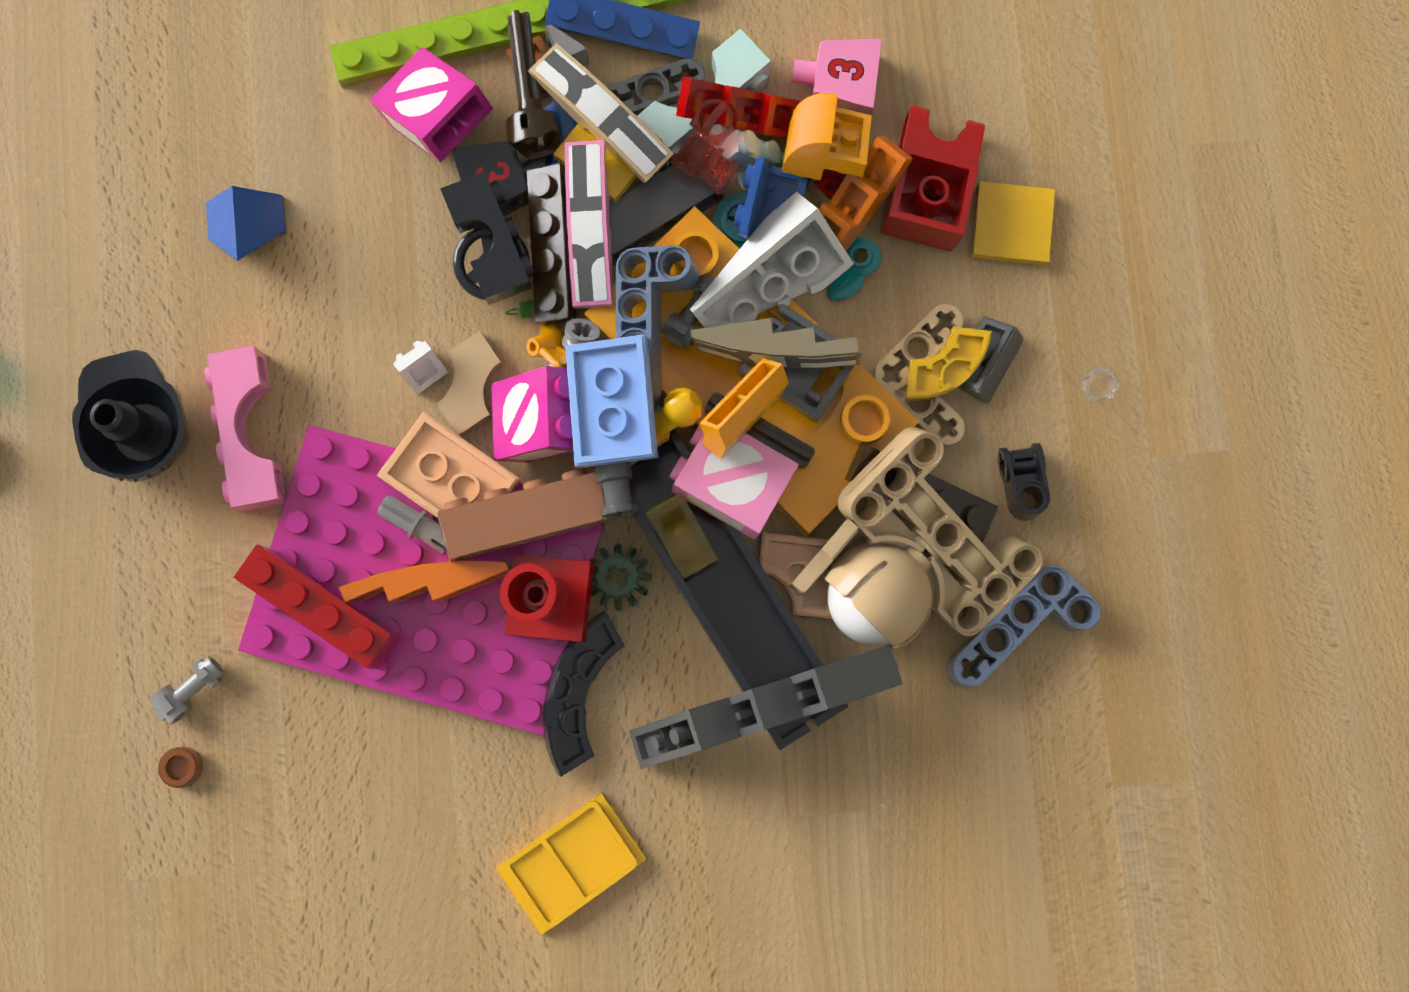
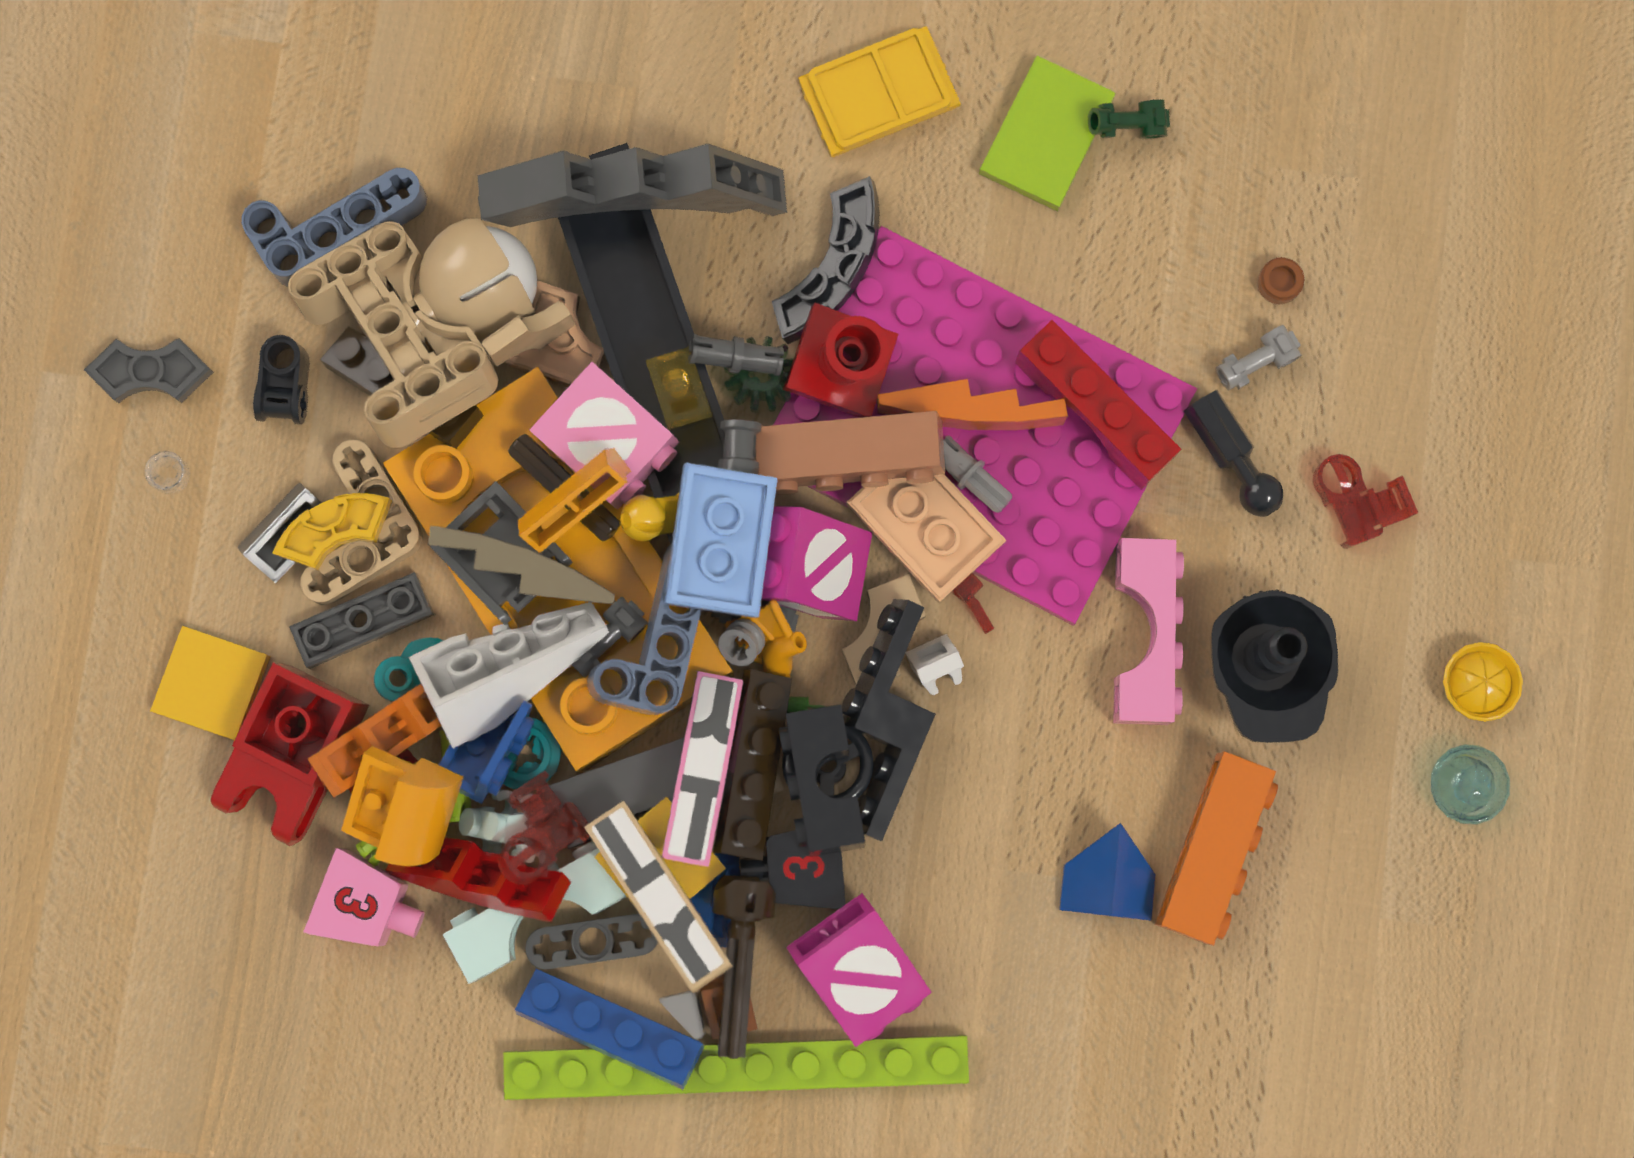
camera: 165 degrees left, 0 degrees up
(76, 574) = (1362, 511): none -> clear red piece
(159, 265) = (1216, 849): none -> orange brick
(198, 603) = (1232, 449): none -> black piece
(319, 888) = (1150, 119): none -> dark green bar
(396, 422) = (966, 593): none -> clear red hand
(412, 857) = (1045, 133): none -> lime tile
(449, 309) = (886, 716): none -> black bracket
(639, 577) = (735, 355): none -> dark grey pin
(888, 314) = (387, 611): none -> dark grey tile
(1122, 471) = (166, 370): none -> dark grey tile

